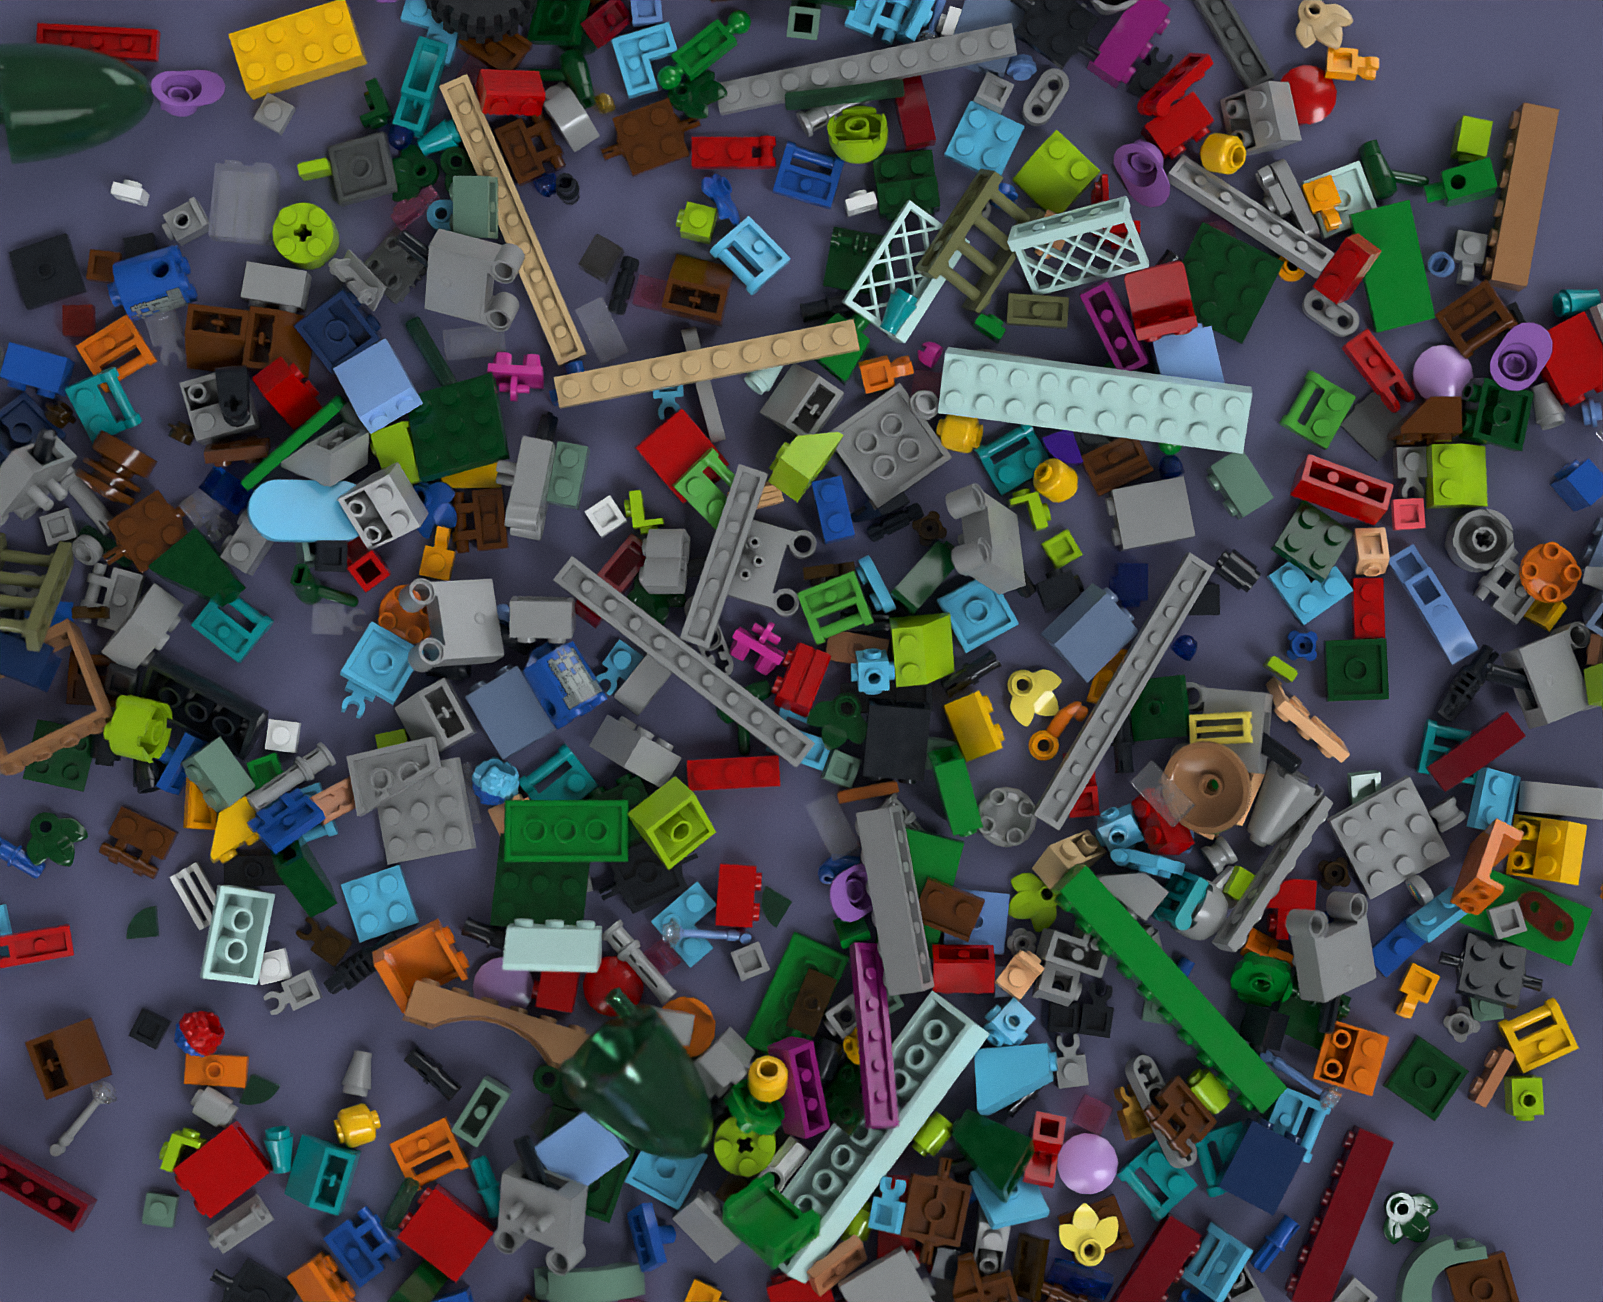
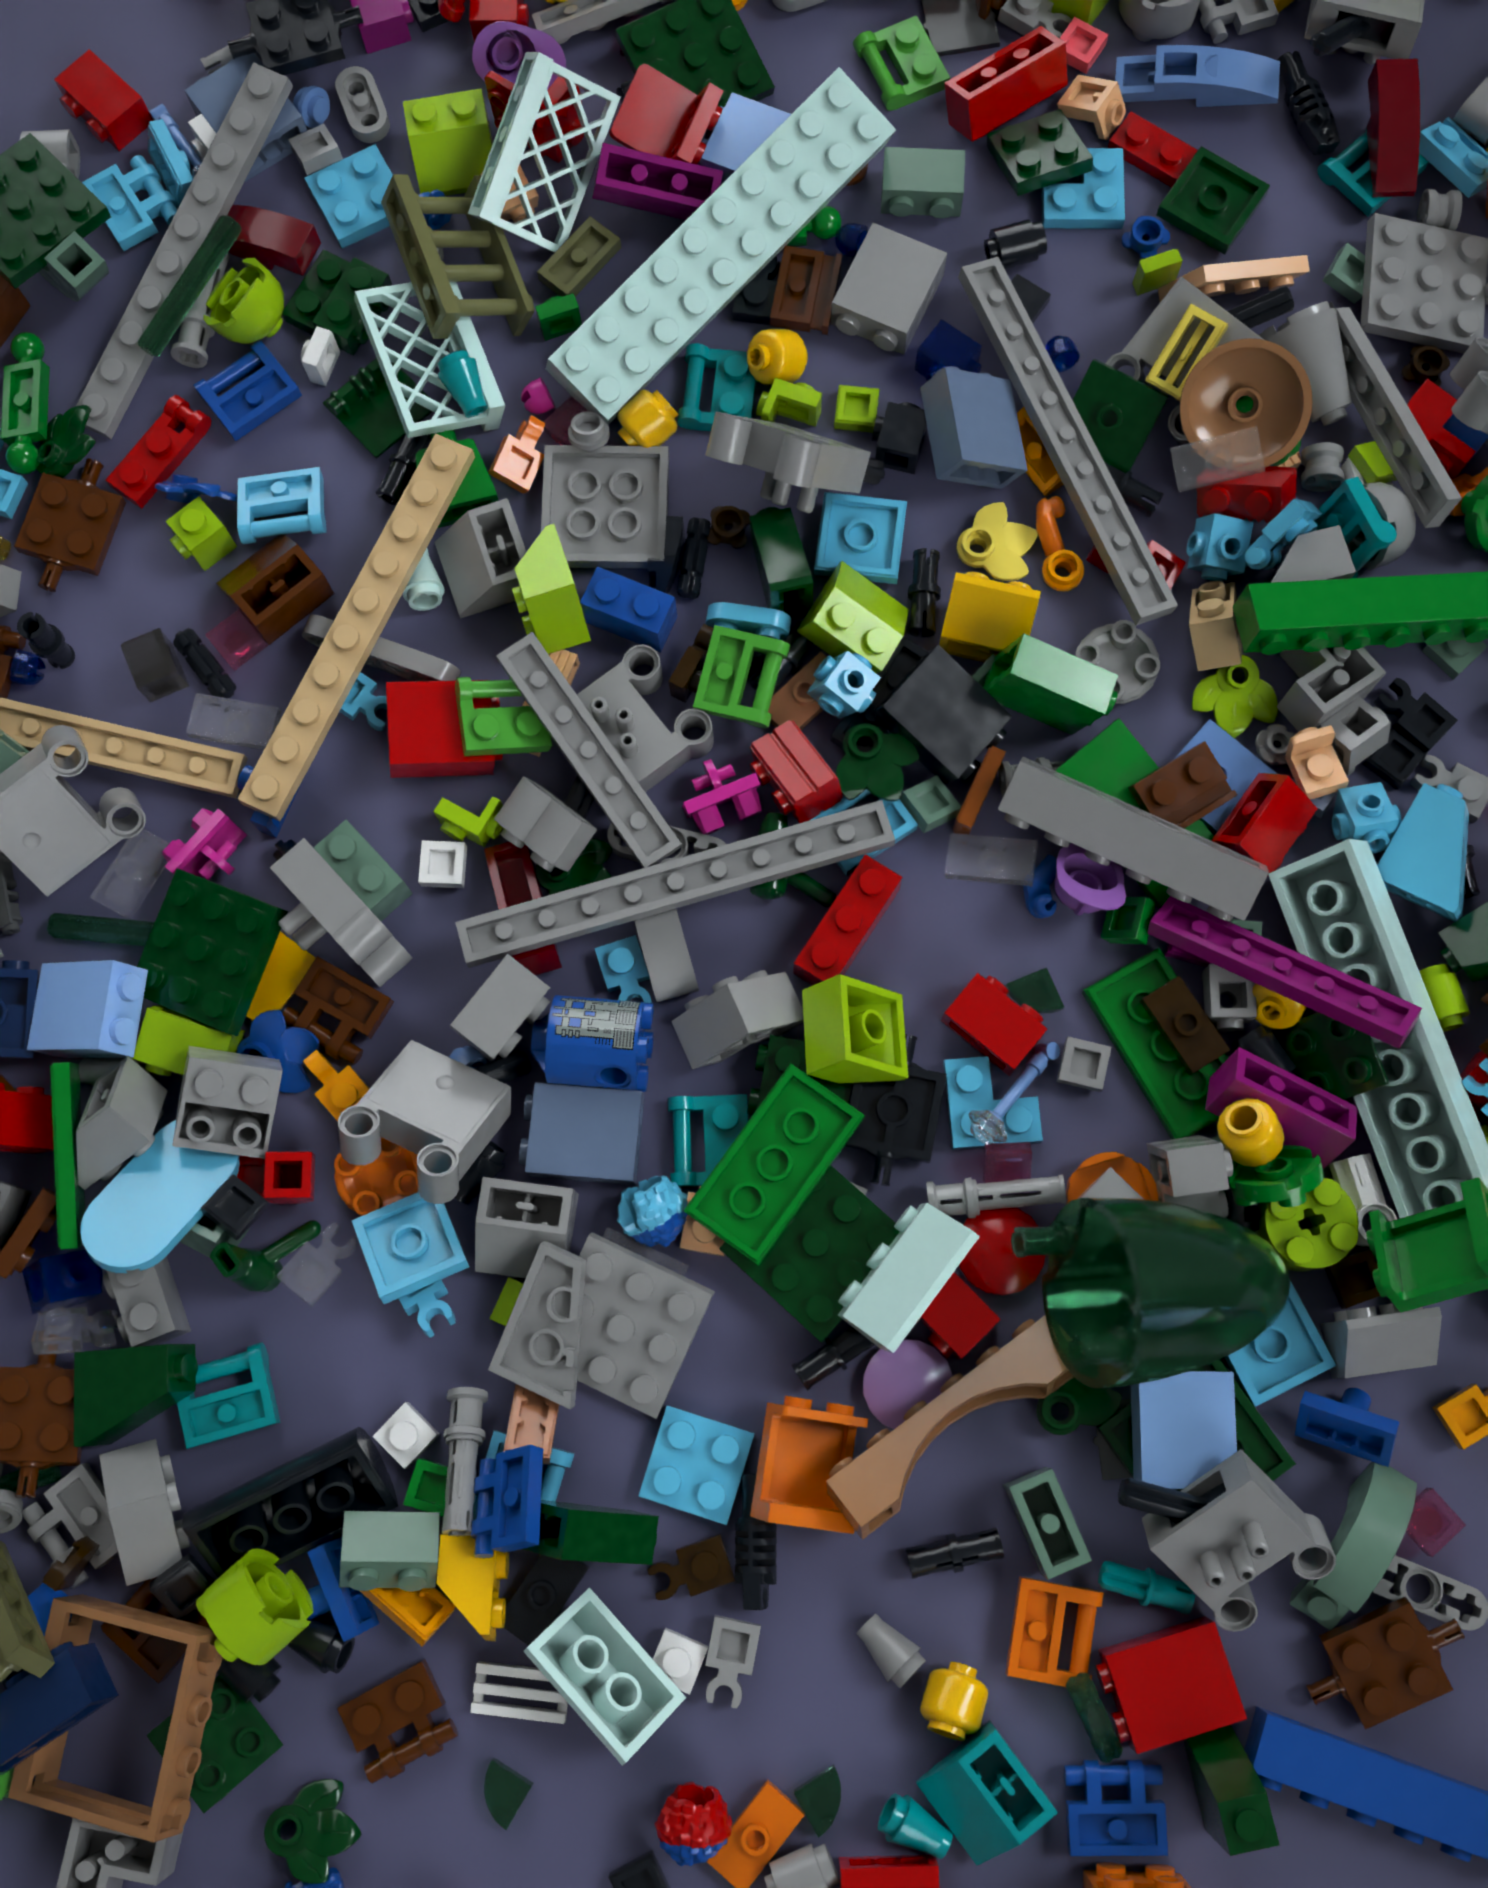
camera: 45 degrees left, 10 degrees down
(1062, 447) = (743, 322): dark purple brick -> none

